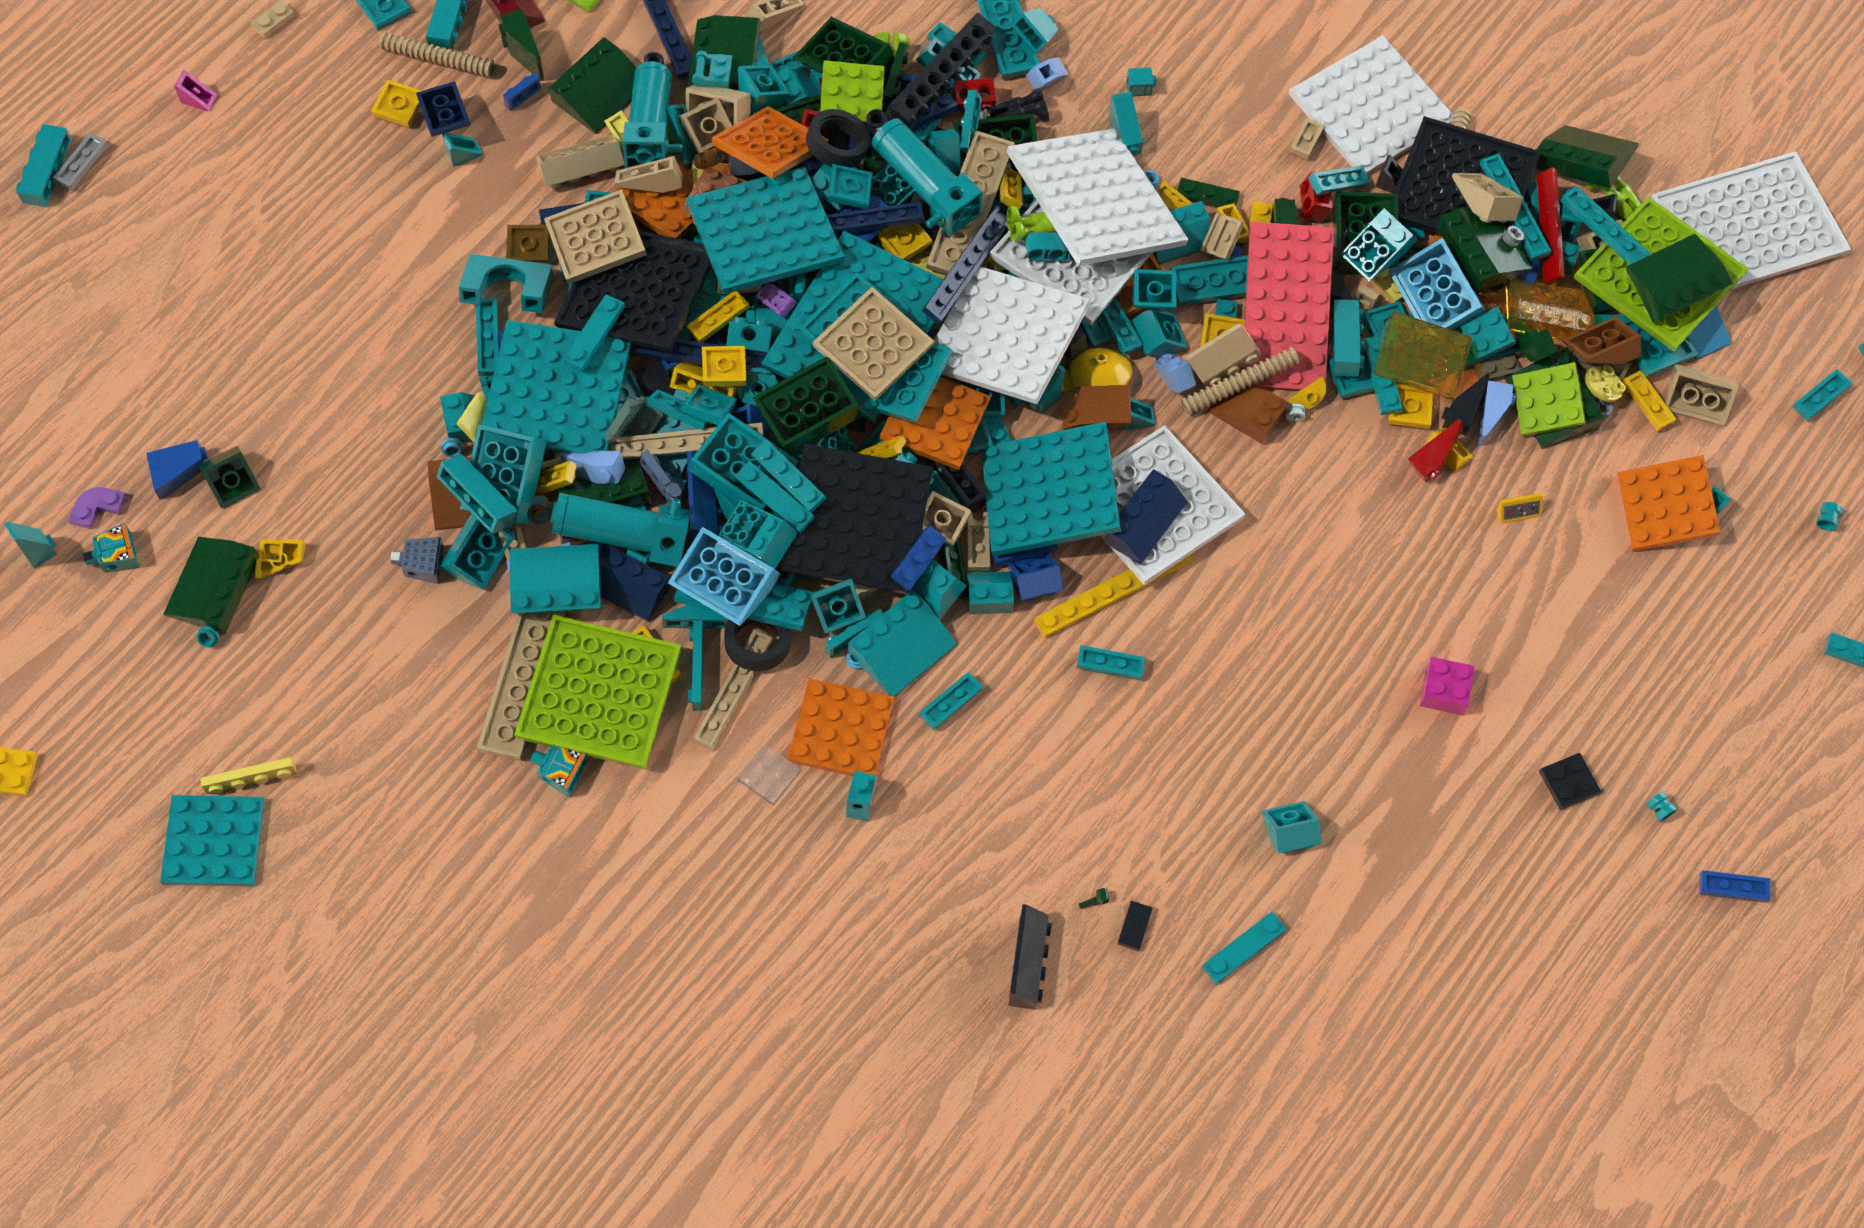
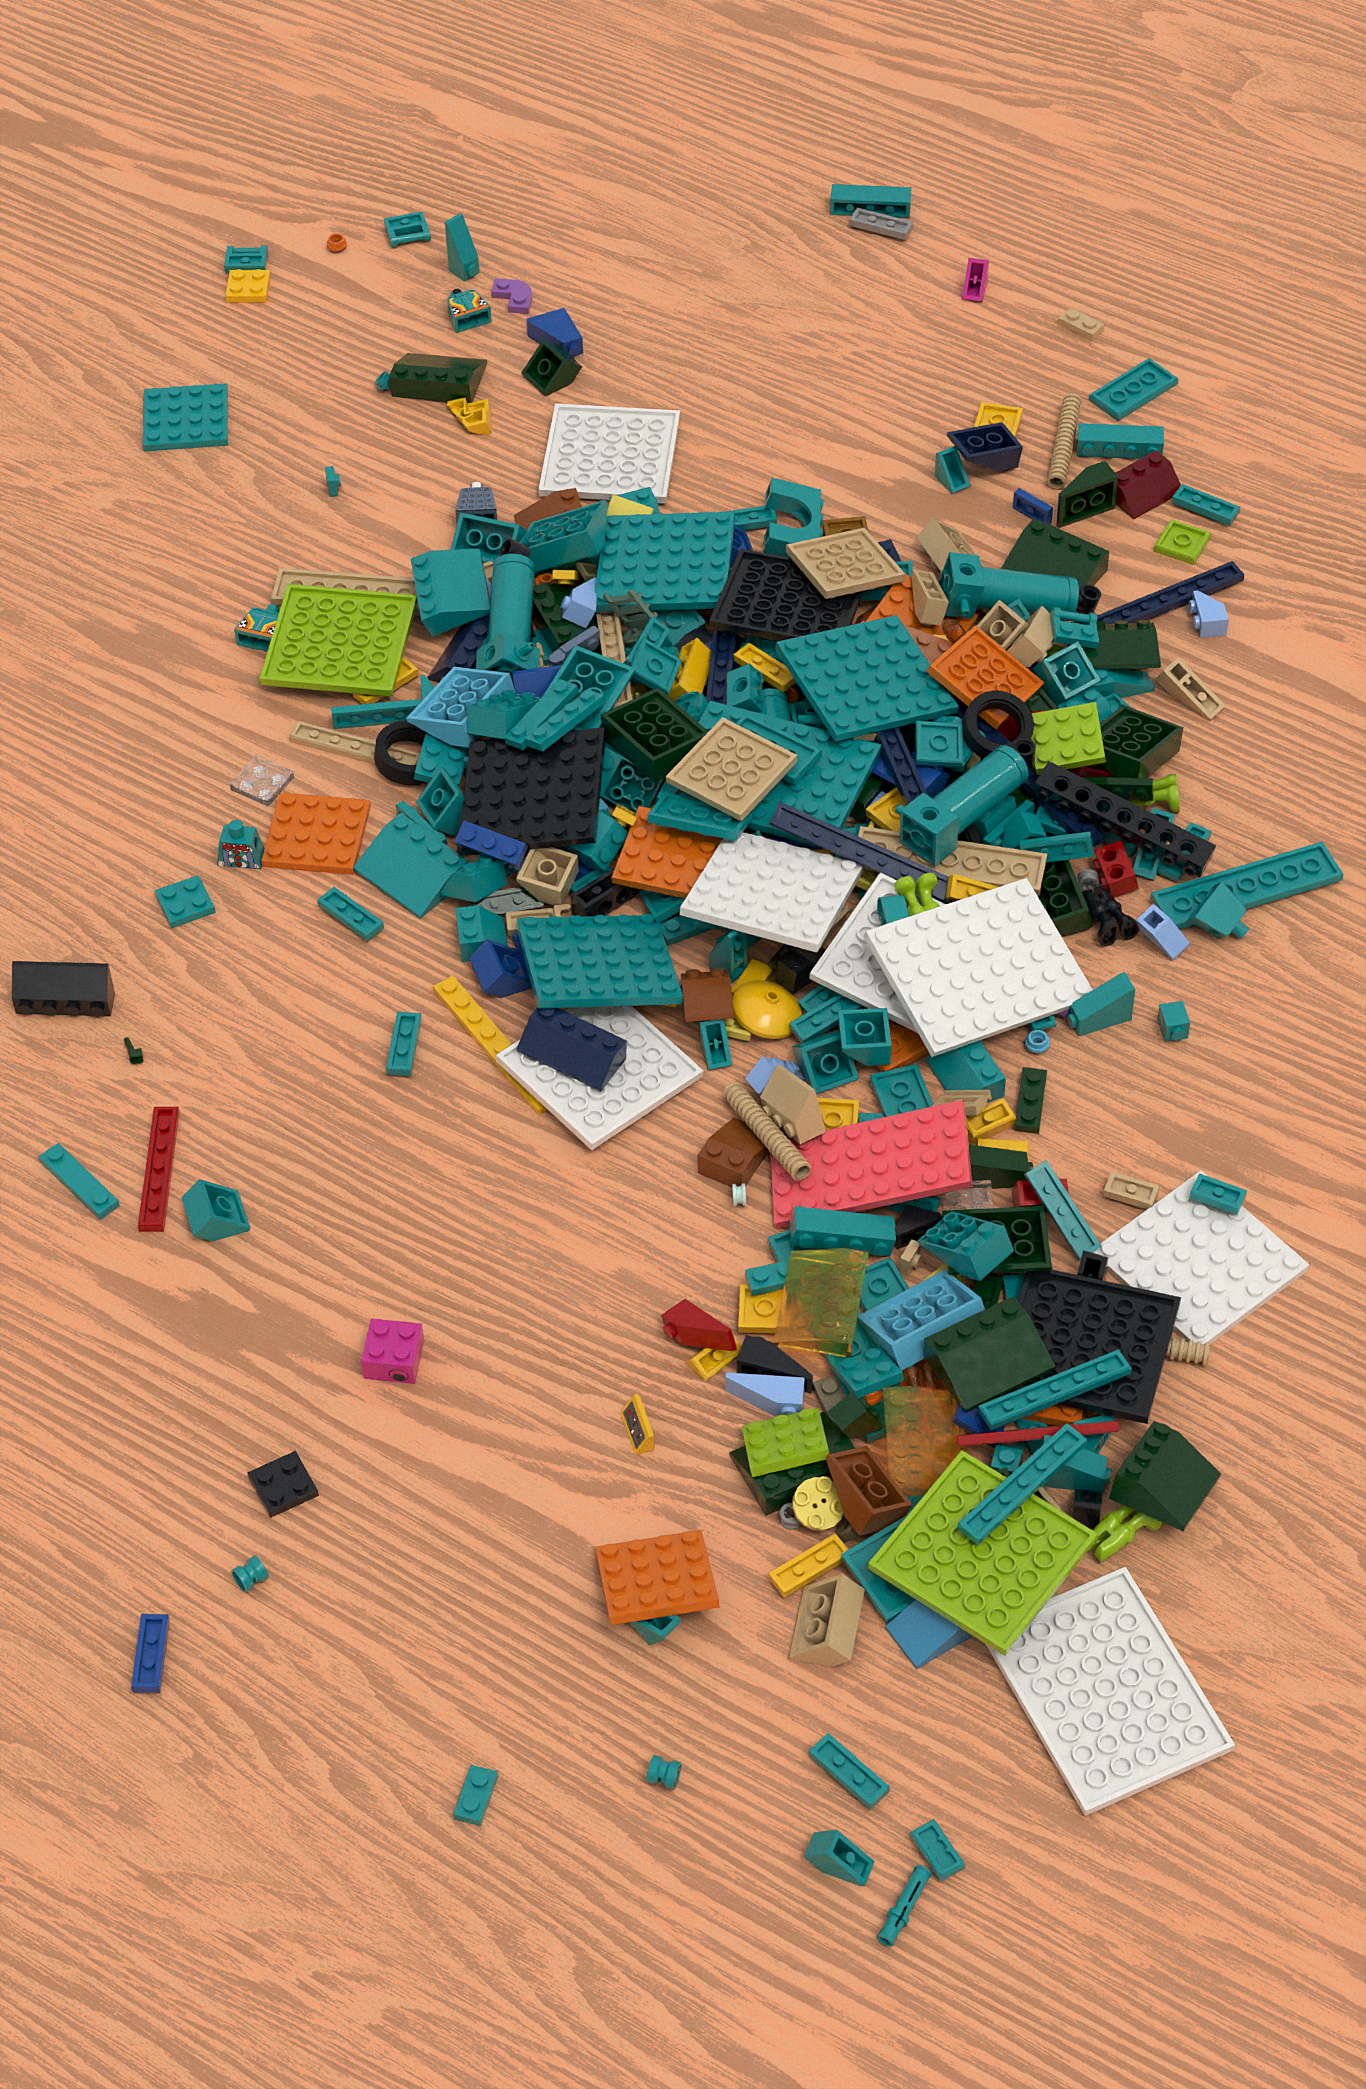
camera: 90 degrees right, 15 degrees down
(254, 774) = (247, 429): light yellow plate -> none
(354, 693) = (333, 481): none -> teal plate
(366, 434) = (609, 451): none -> white plate
(476, 493) = (535, 512): teal brick -> none
(594, 333) = (723, 569): teal plate -> none
(724, 366) = (700, 670): yellow plate -> none
(776, 299) = (790, 707): medium lavender plate -> none
(914, 850) = (185, 901): none -> teal plate
(1135, 925) = (103, 1085): black tile -> none
(1172, 197) = (1013, 1061): yellow plate -> none
(1233, 877) = (158, 1169): none -> red tile
(1310, 395) = (762, 1206): yellow plate -> none
(1323, 77) = (1218, 1194): none -> teal plate
(1488, 197) = (1054, 1345): tan slope -> none
(1513, 236) = (999, 1387): light grey bush -> none
(1677, 277) = (962, 1547): dark green slope -> none

